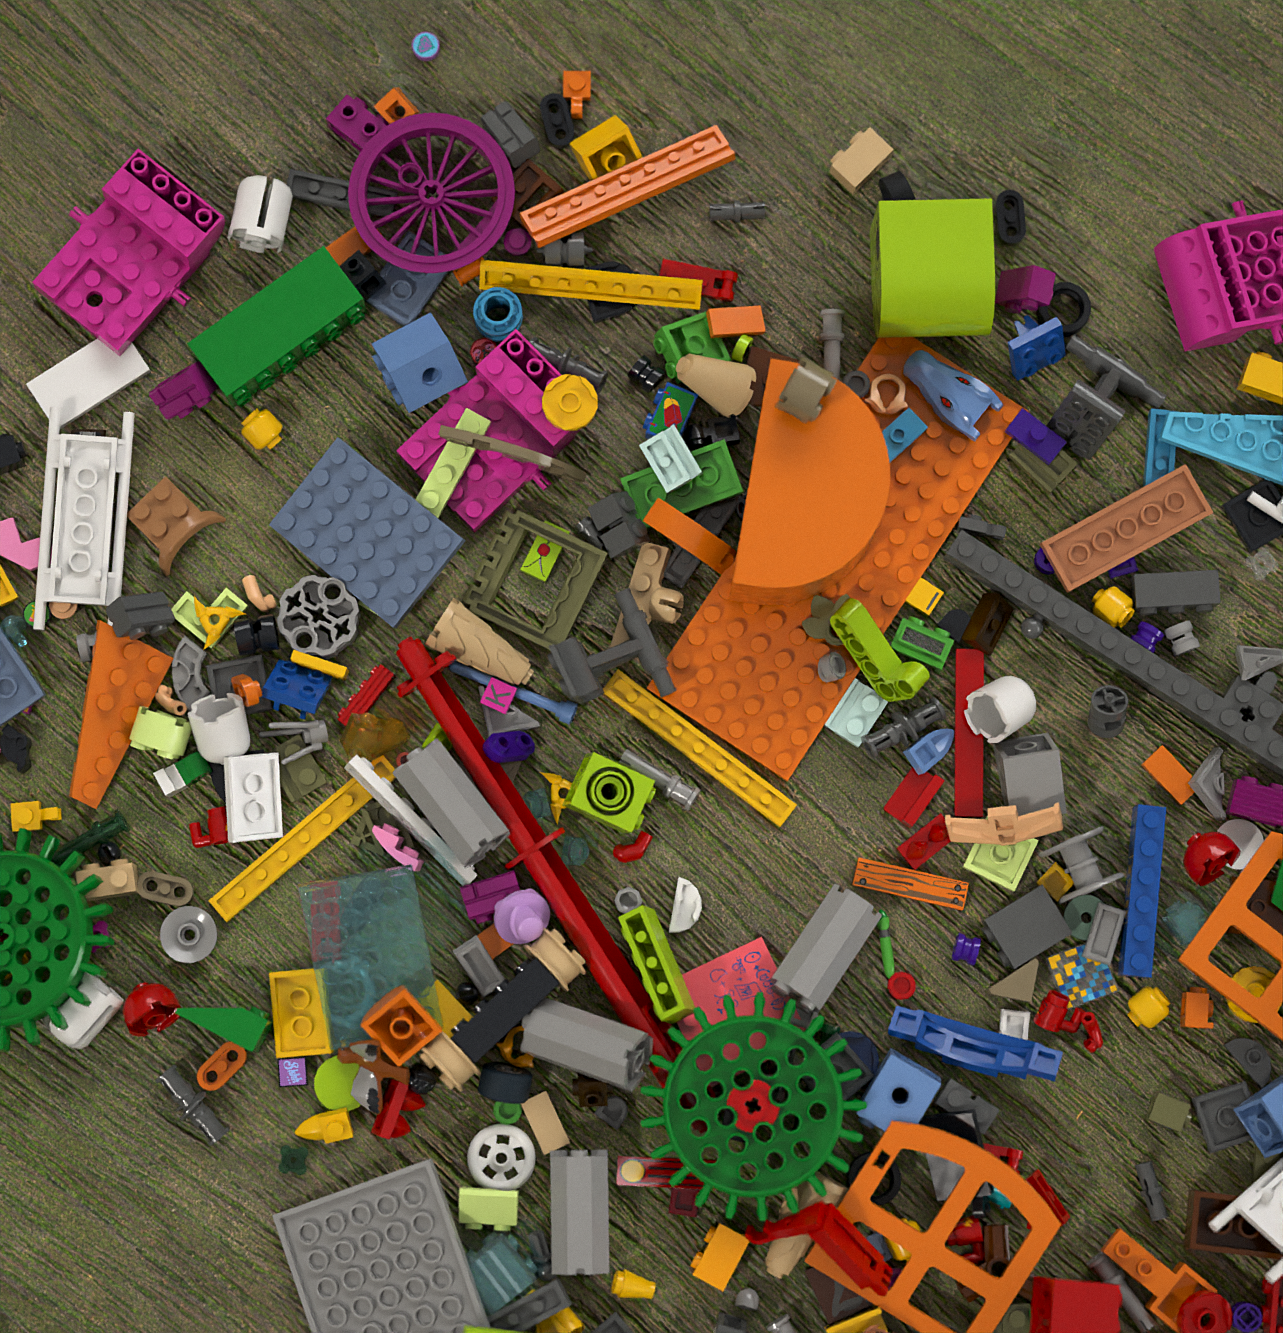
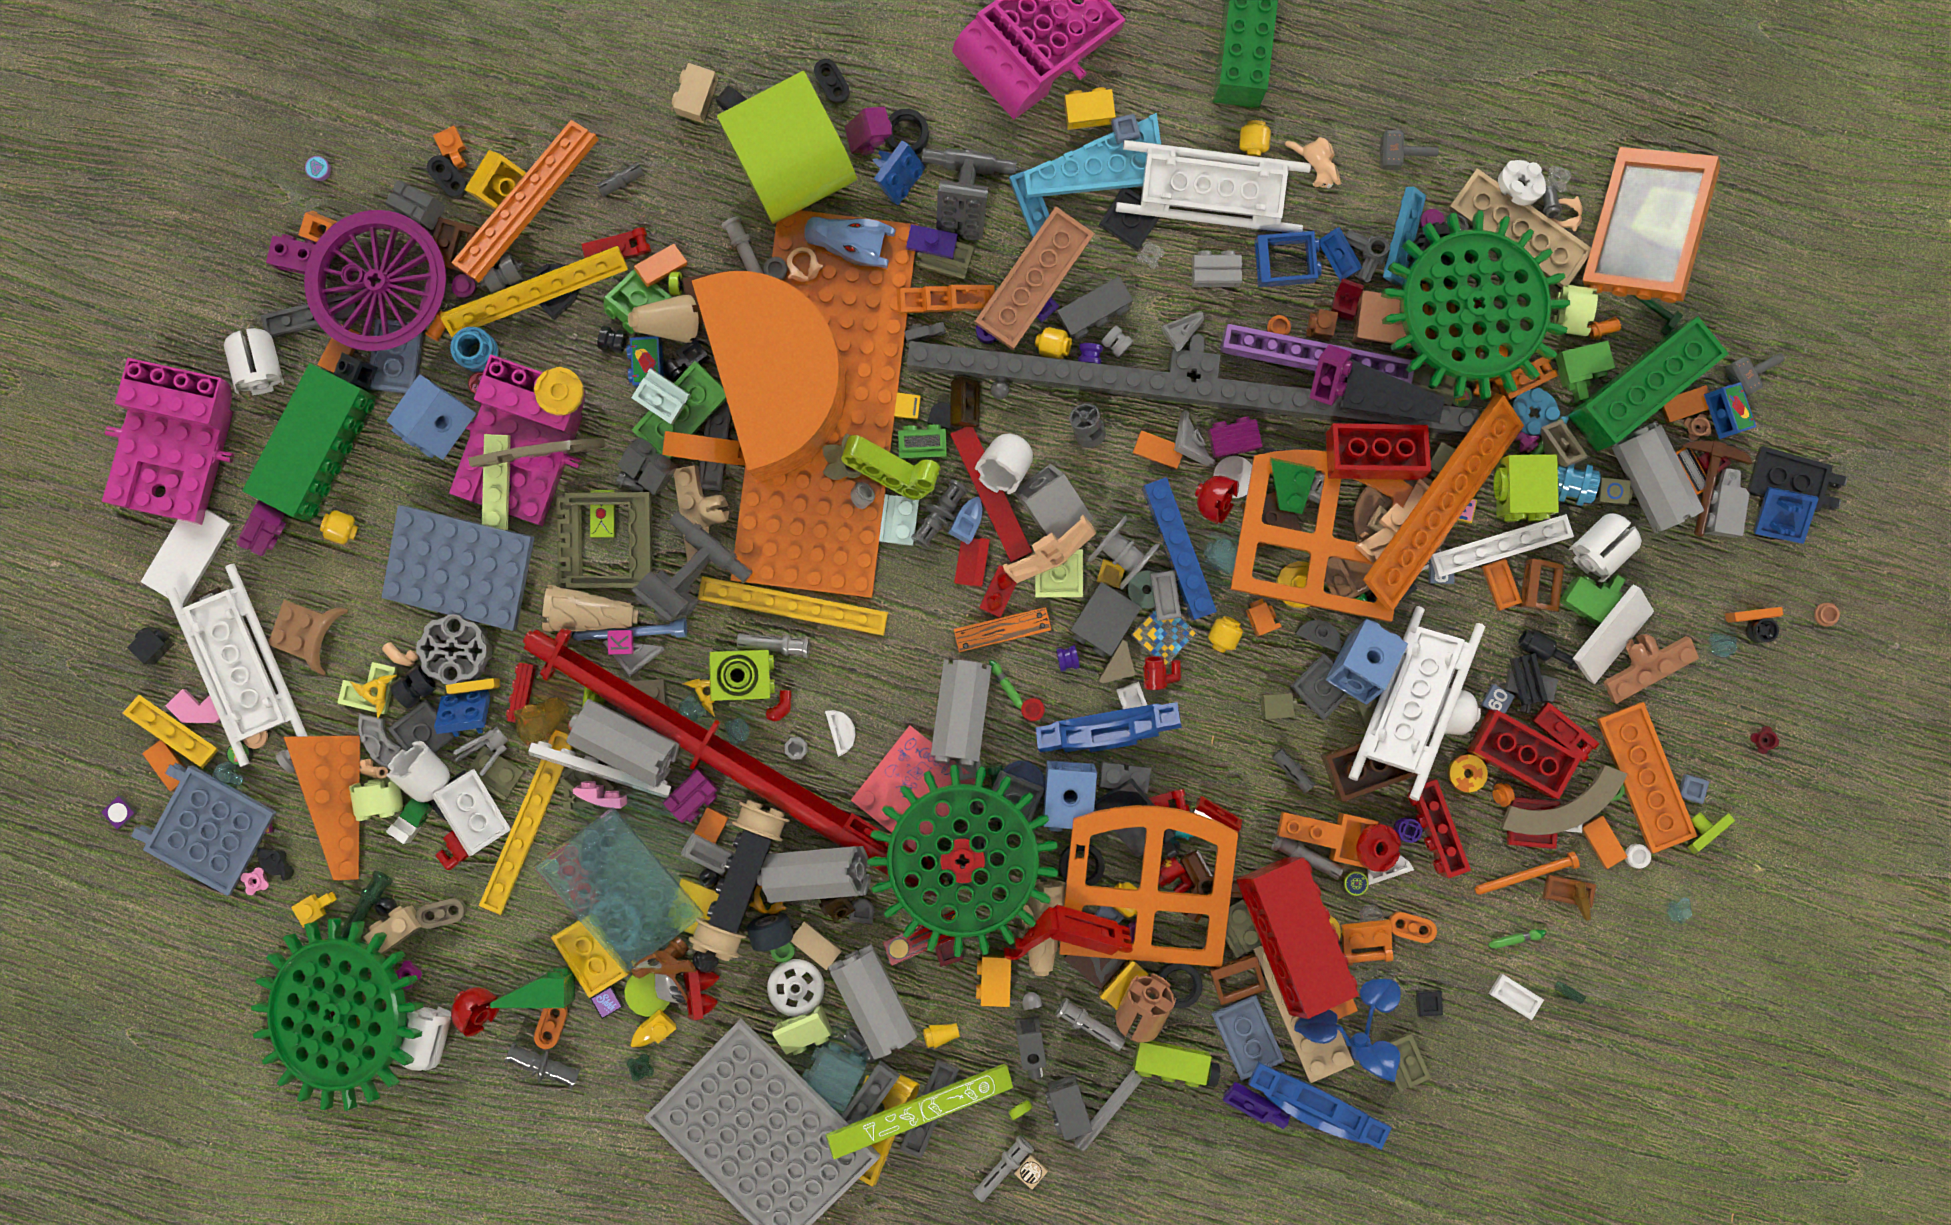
camera: 20 degrees left, 5 degrees up
(140, 615) = (315, 716): dark grey brick -> none
(174, 929) = (464, 939): light grey dish -> none
(246, 689) = (424, 733): orange plate -> none
(400, 1024) = (666, 932): orange brick -> none
(508, 746) = (650, 675): dark purple plate -> none
(521, 916) = (719, 801): lavender plate -> none
(566, 365) = (544, 361): dark grey piece -> none
(657, 964) = (839, 786): lime brick -> none
(805, 390) = (727, 292): dark tan brick -> none
(902, 433) = (828, 291): dark azure plate -> none
(1019, 502) = (944, 298): none -> orange slope
(1093, 1031) = (1190, 670): red arm -> none

